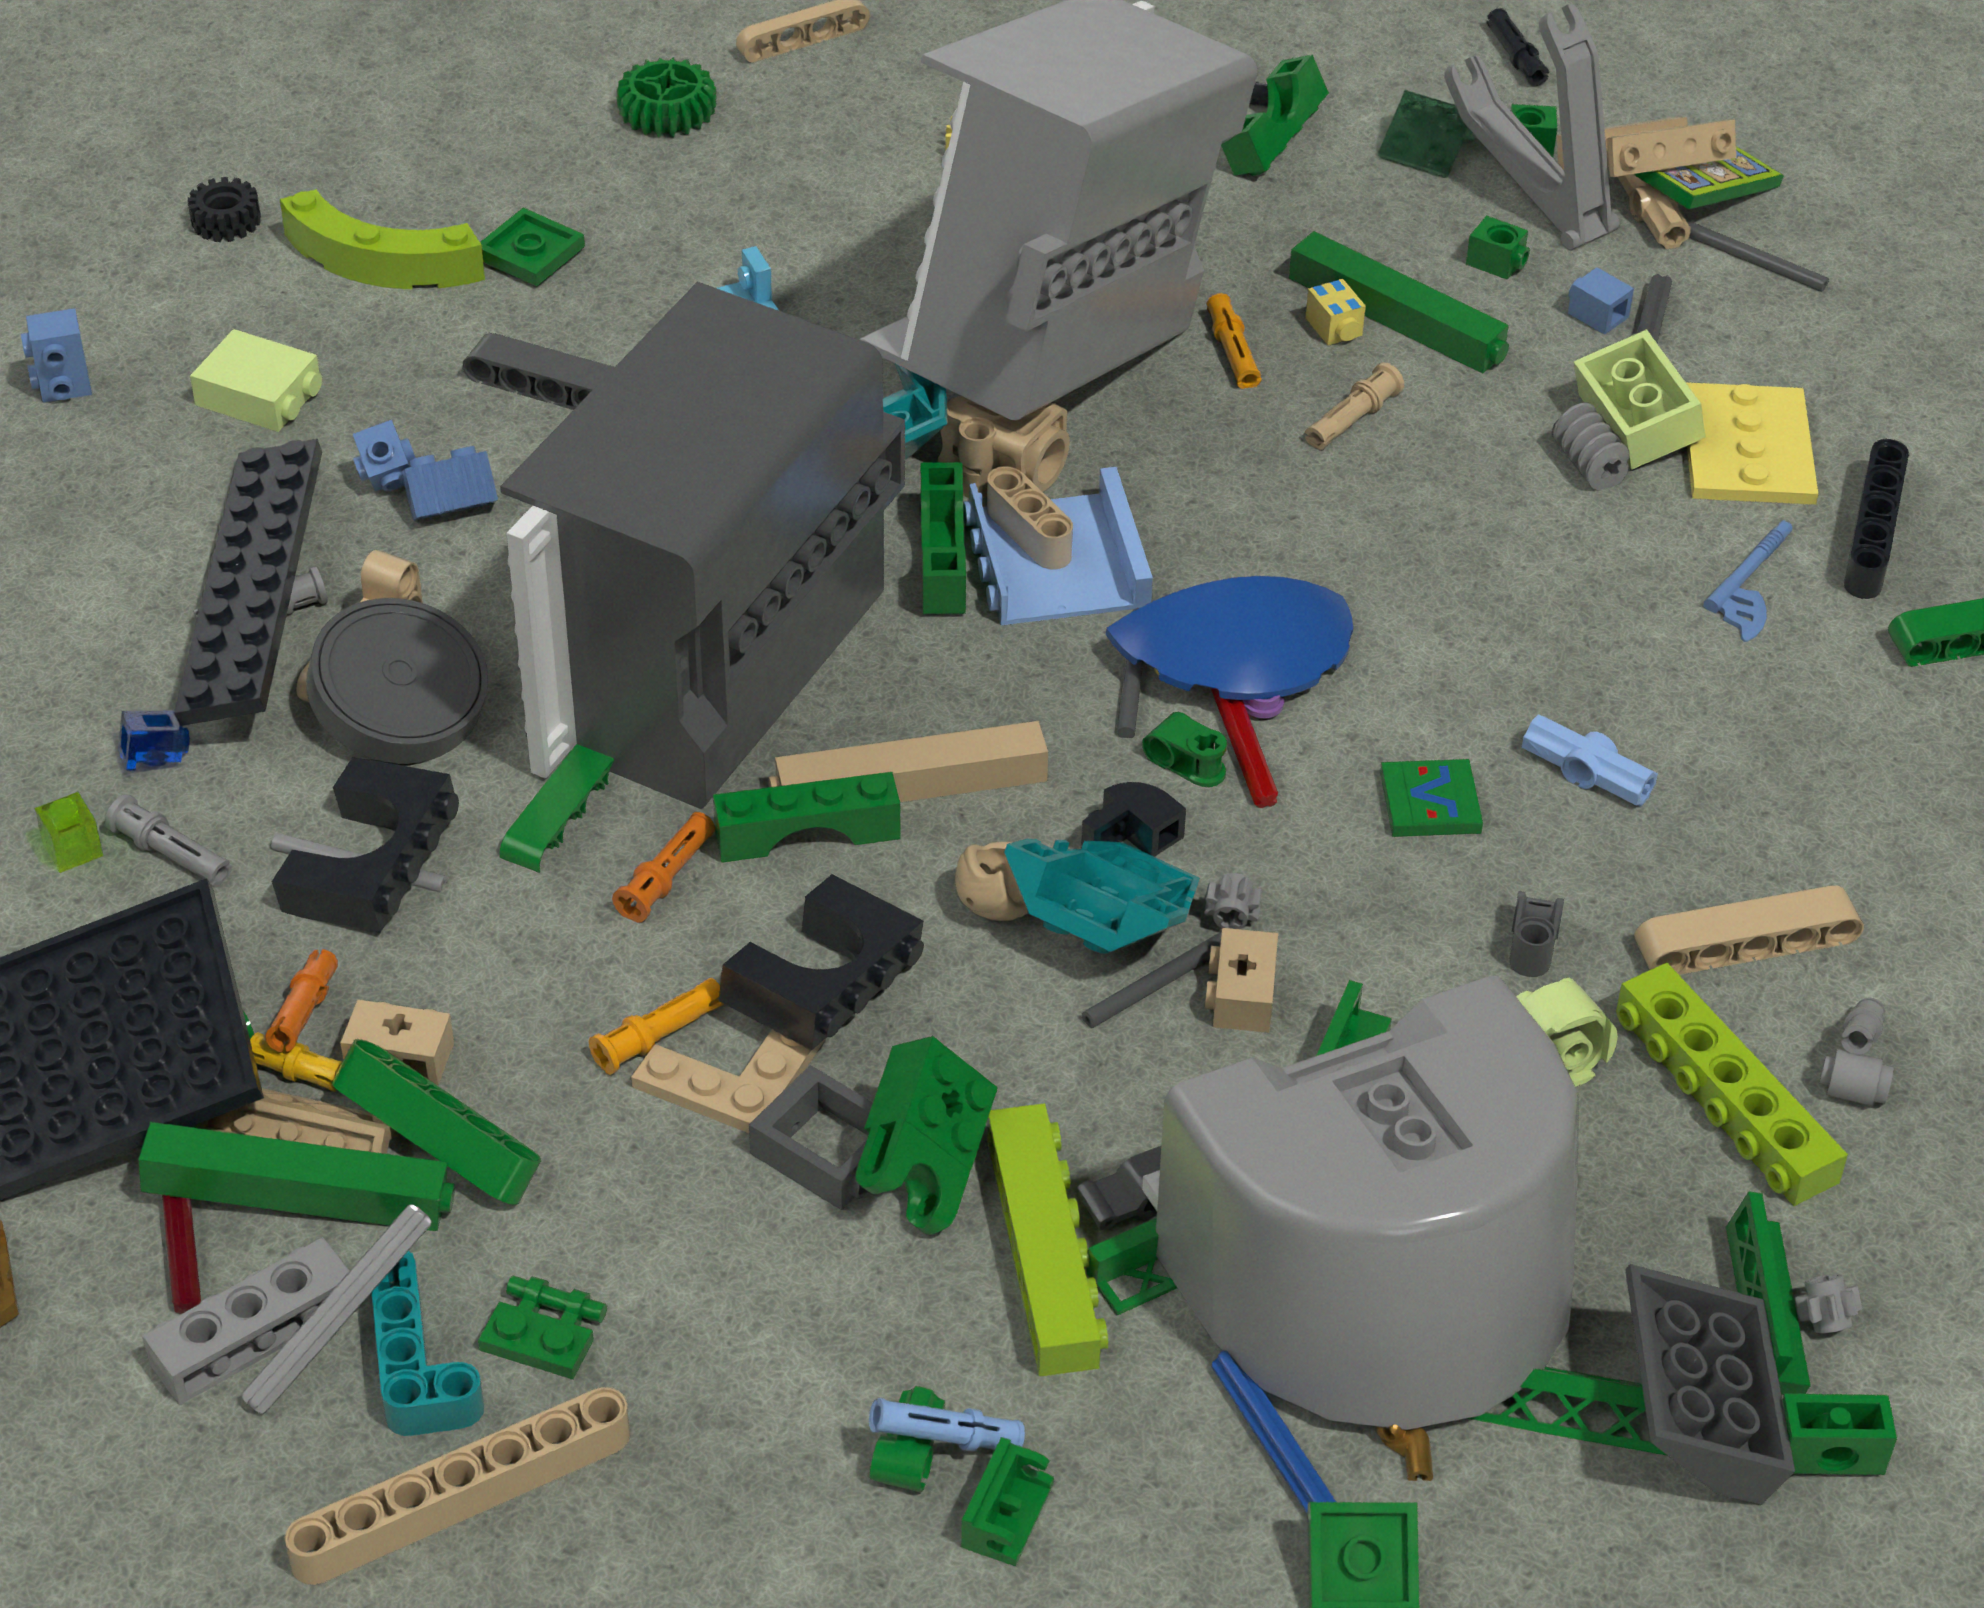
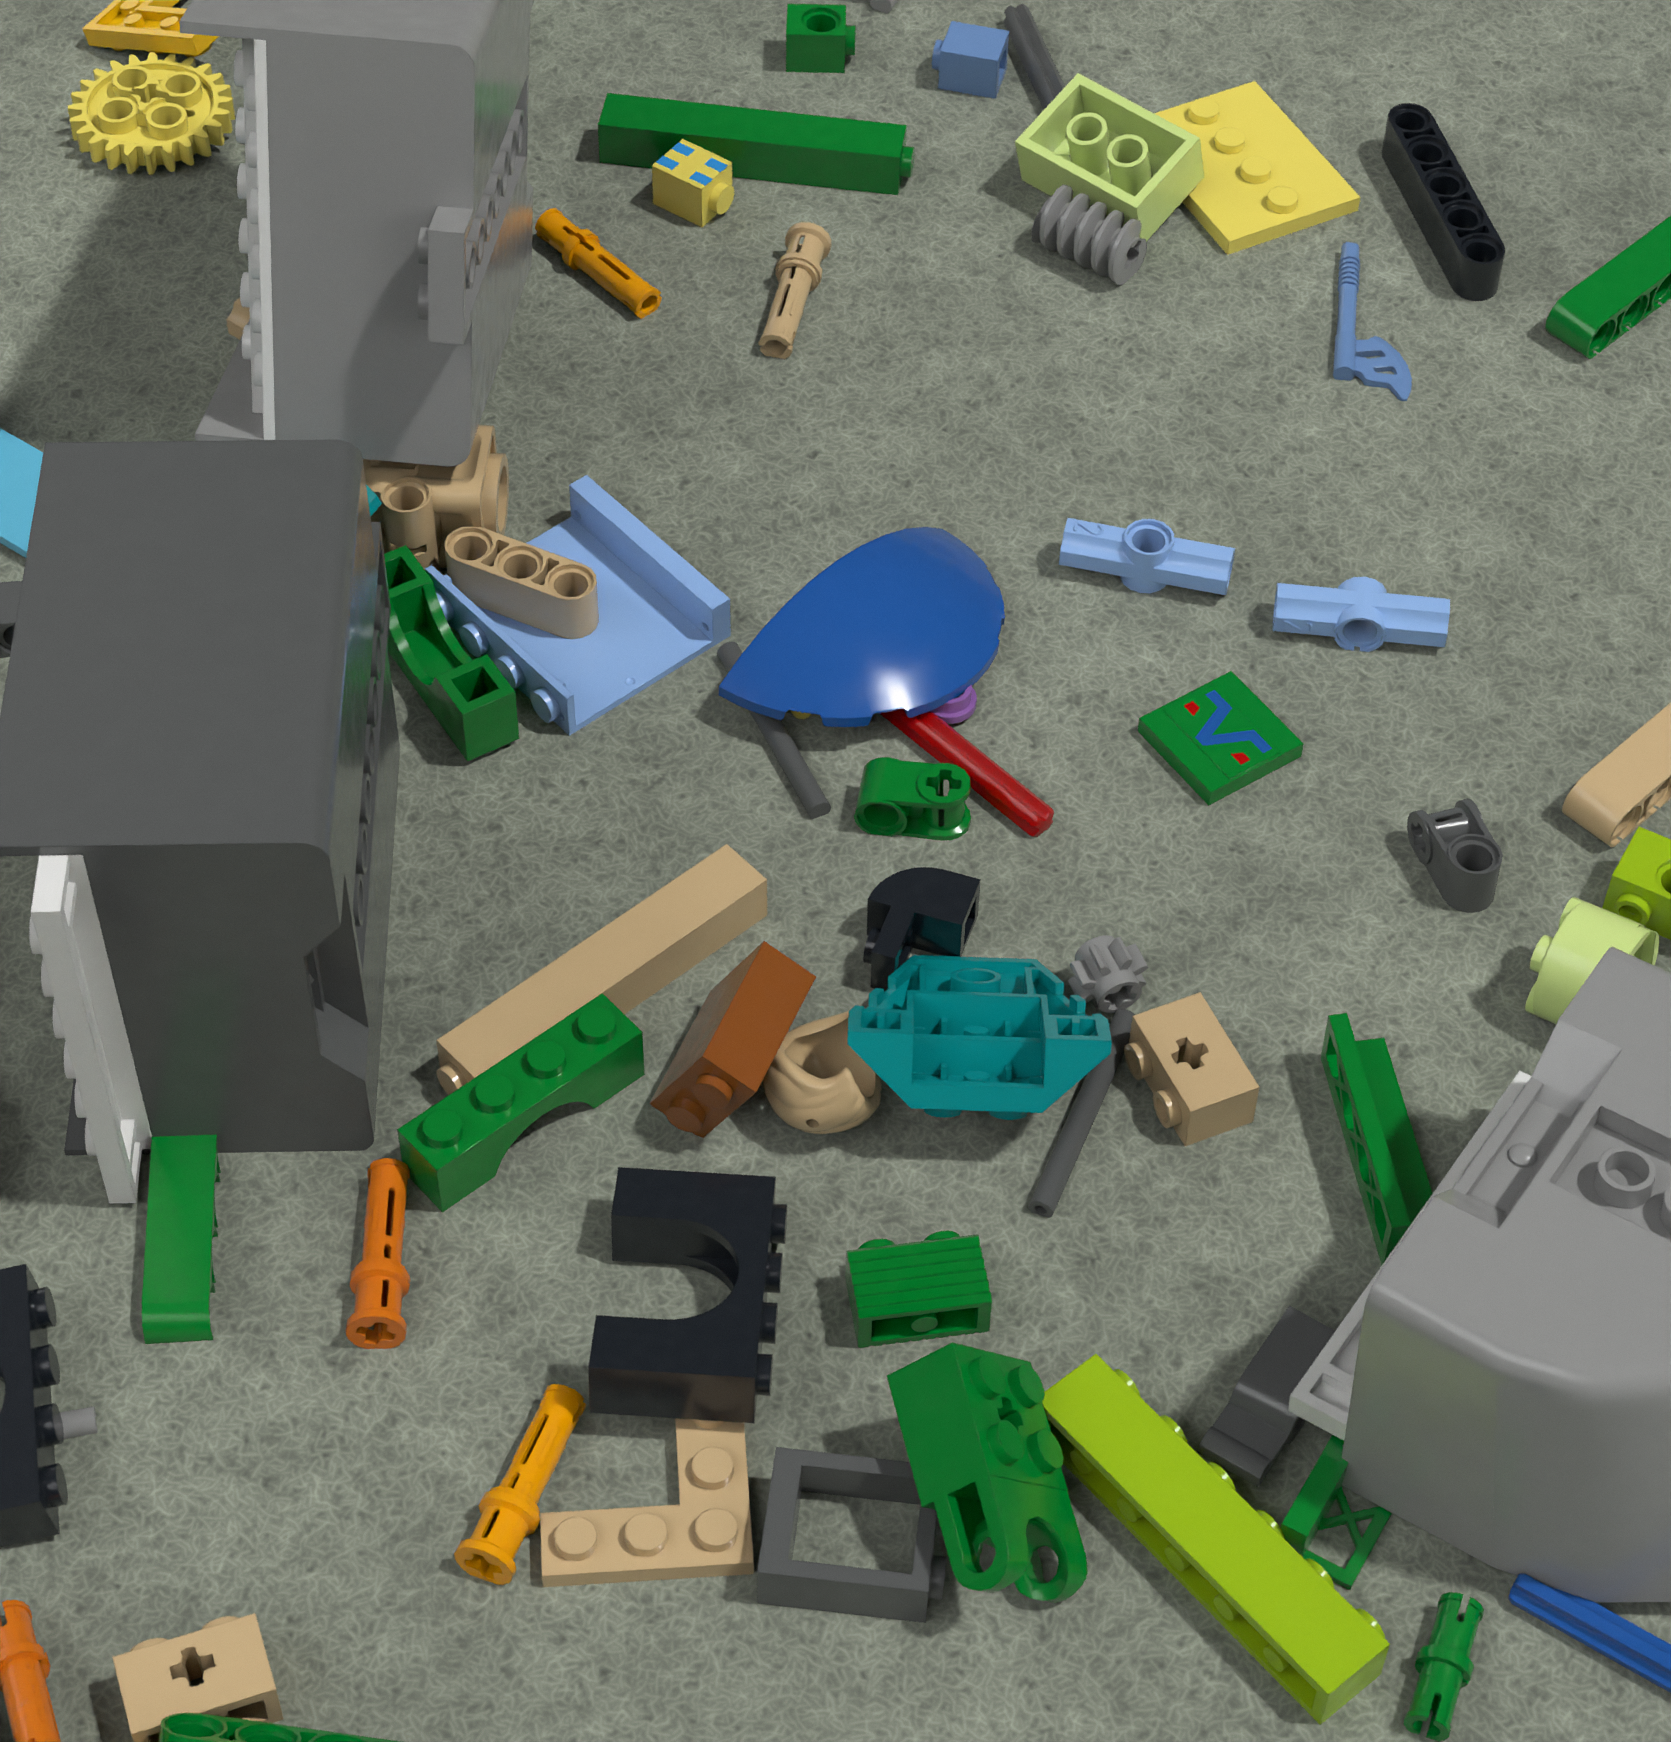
camera: 30 degrees left, 5 degrees up
(941, 835) = (732, 1041): none -> dark orange brick
(972, 1024) = (918, 1289): none -> green brick
(1138, 1379) = (1444, 1666): none -> green pin
(1465, 665) = (1146, 556): none -> light blue piece

